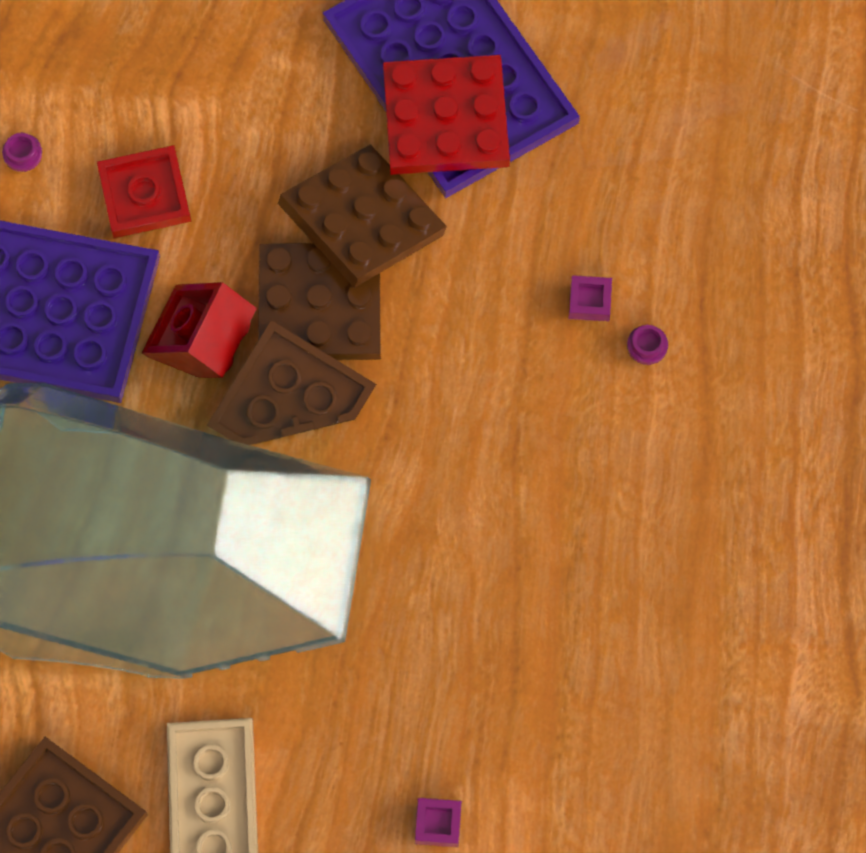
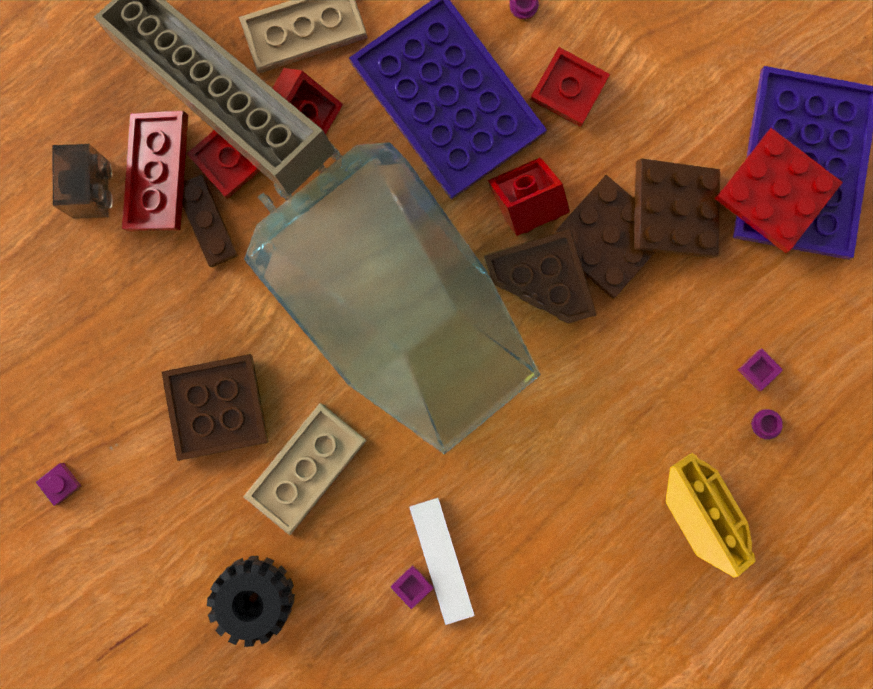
camera: 40 degrees right, 15 degrees up
(445, 770) = (441, 561): none -> white tile
(668, 478) = (709, 516): none -> yellow wedge

